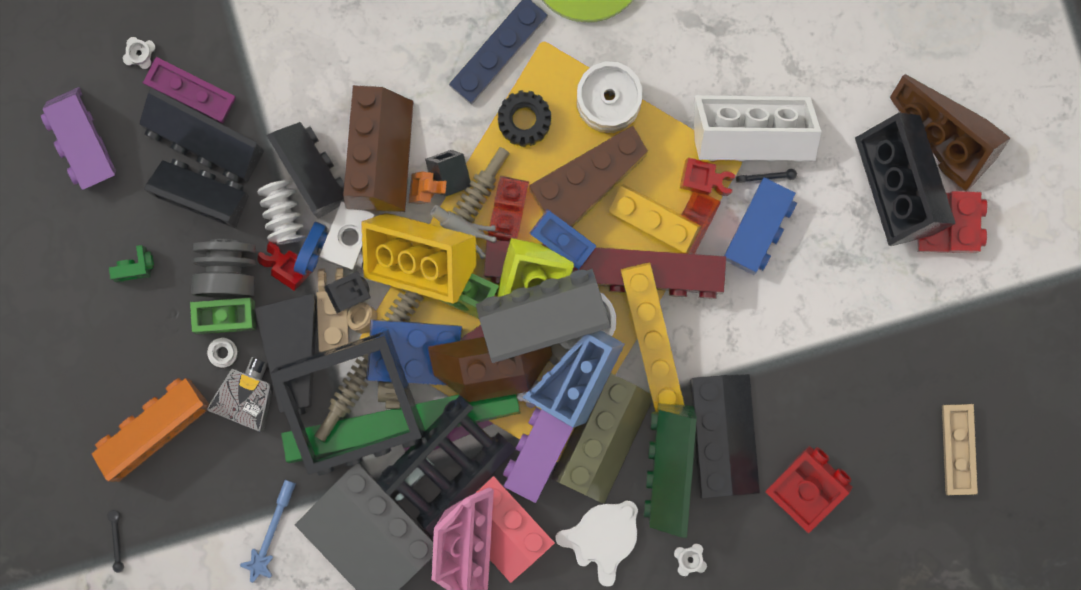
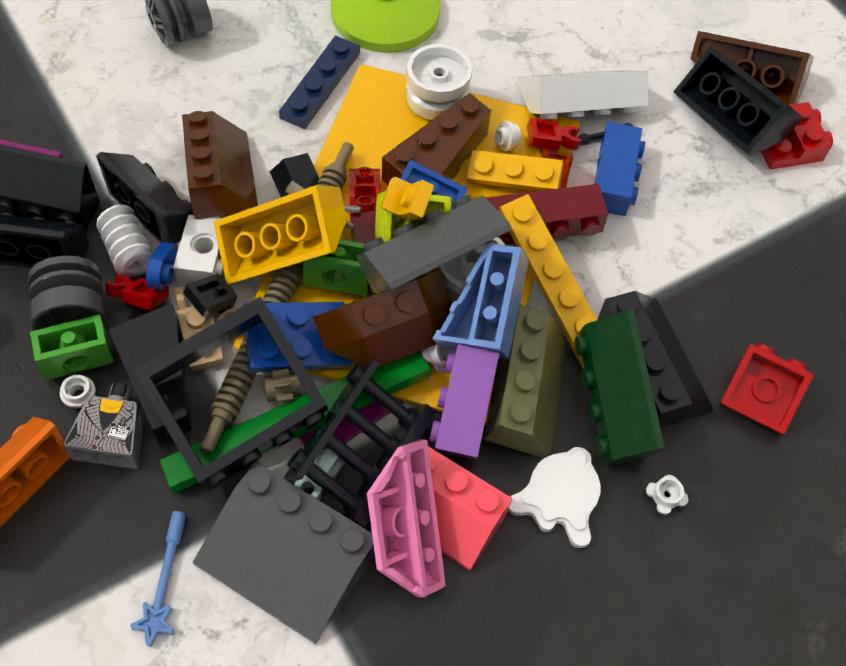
camera: 20 degrees left, 25 degrees down
(423, 187) = (275, 186): orange plate -> none
(521, 100) = (360, 105): black tyre -> none
(530, 271) = (407, 199): none -> yellow bracket
(661, 171) = (507, 135): none -> white plate

